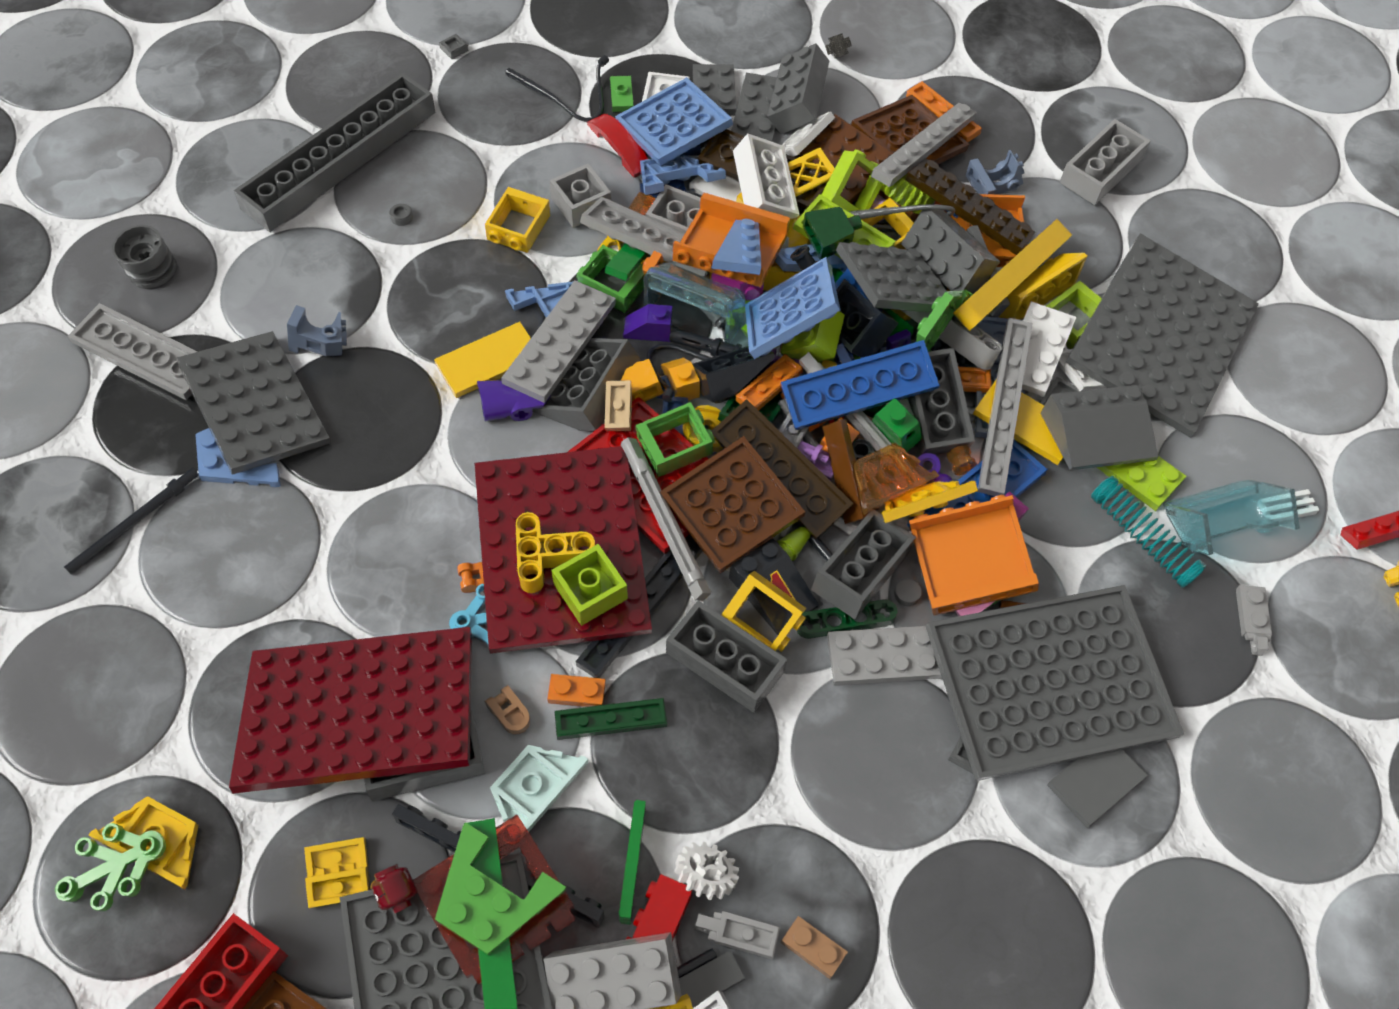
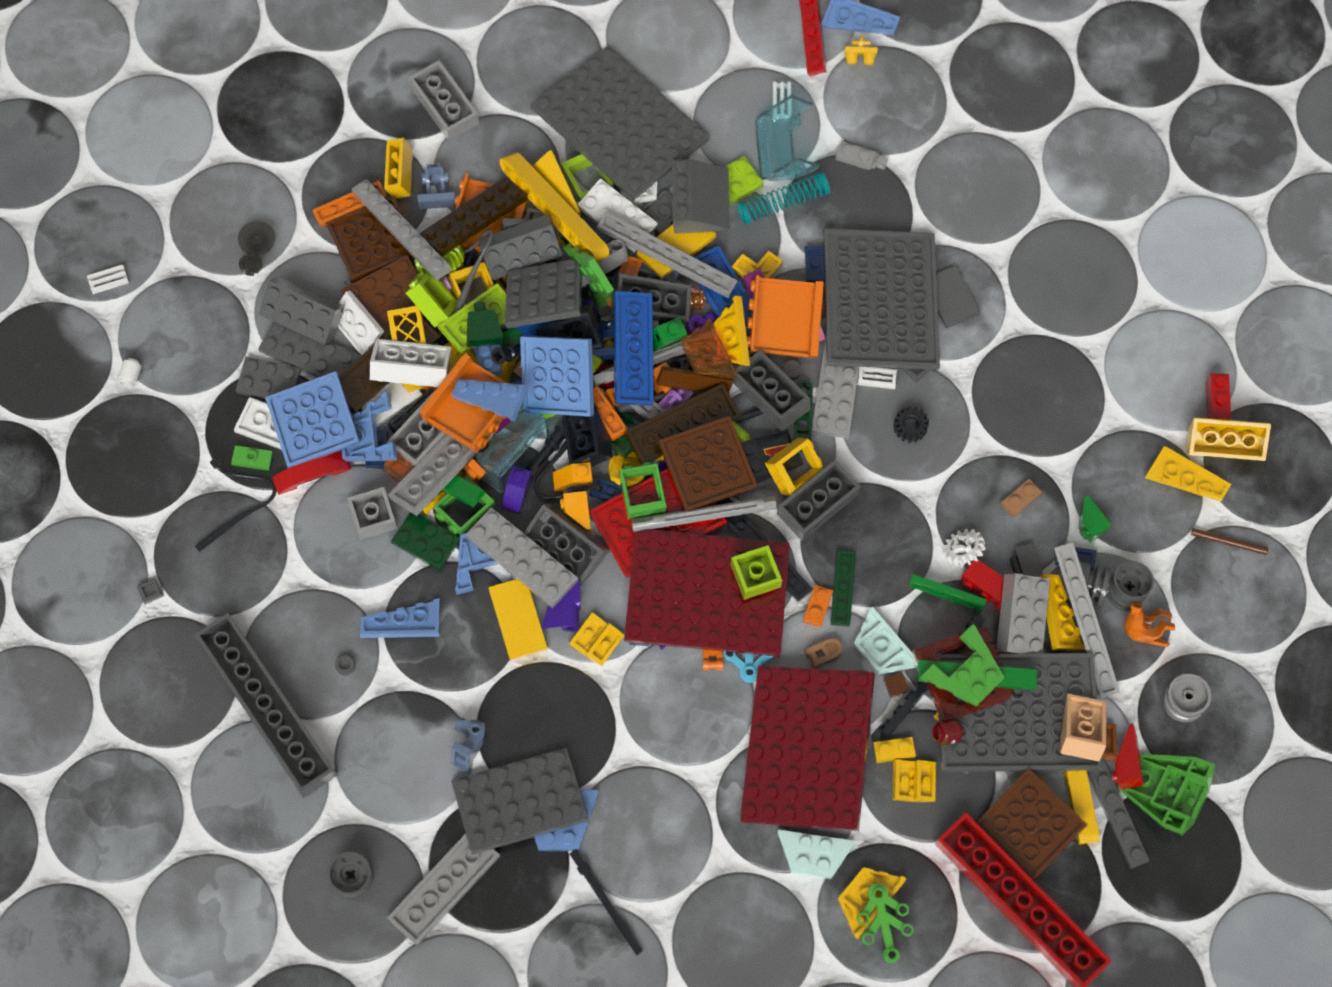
camera: 75 degrees left, 10 degrees up
(210, 755) = (814, 853): none -> light aqua wing
(381, 835) = (894, 749): none -> yellow plate
(460, 254) = (414, 621): none -> medium blue wing
(476, 441) = (596, 639): none -> yellow slope
(477, 812) = (896, 685): none -> reddish brown tile
(516, 201) = (366, 559): yellow window -> none
(543, 546) = (720, 600): yellow beam -> none
(564, 254) = (426, 541): none -> dark green plate
(618, 405) = (600, 525): tan plate -> none
(740, 933) = (1005, 539): light grey hinge -> none
(870, 45) = (254, 231): none -> clear smoke dish
(875, 776) = (914, 414): none -> black tyre
(940, 724) = (891, 384): none -> white tile
(998, 138) = (398, 168): none -> yellow brick
(1037, 530) = (768, 264): none -> yellow plate
(1069, 585) = (814, 264): none -> dark blue plate

